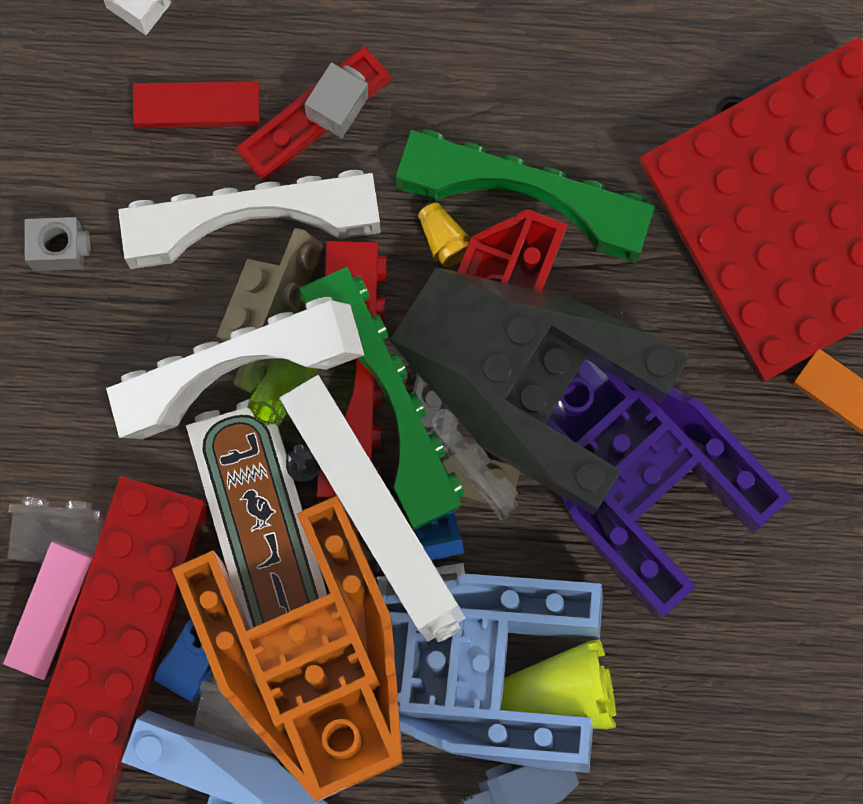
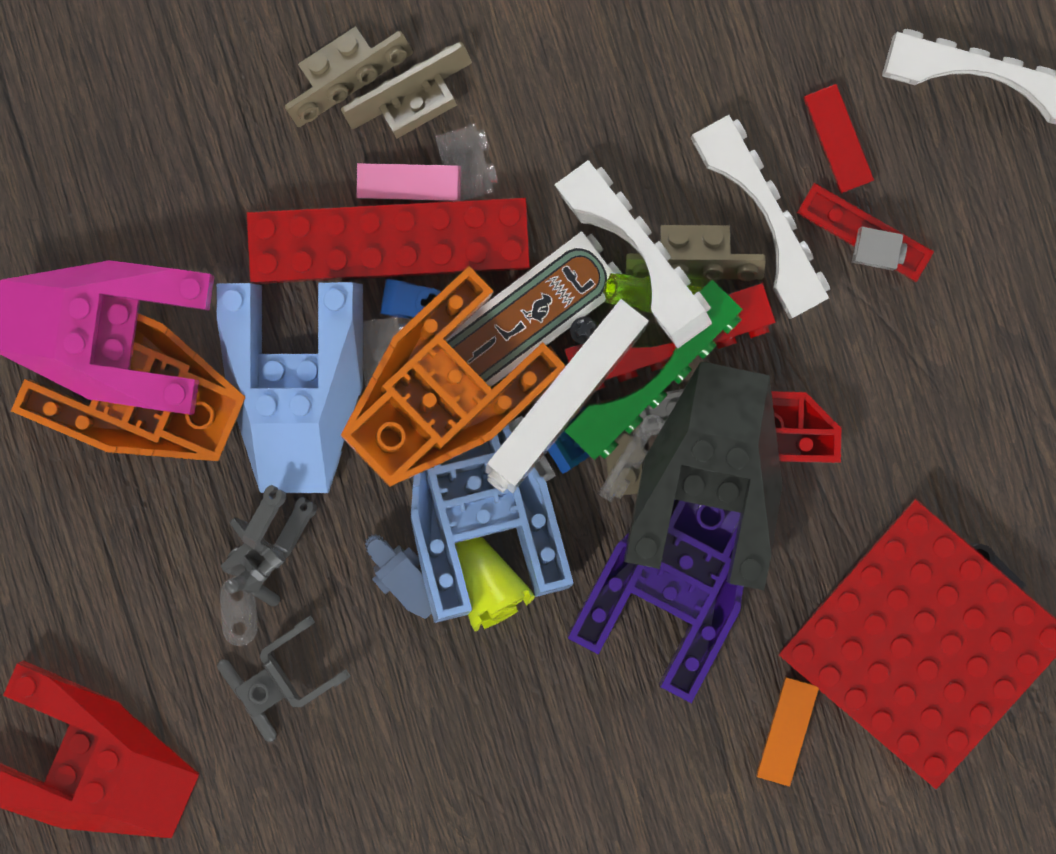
camera: 75 degrees right, 10 degrees up
(40, 234) = (686, 60): light grey brick -> none
(442, 168) = (854, 347): green arch -> none
(443, 235) = (802, 370): yellow cone -> none

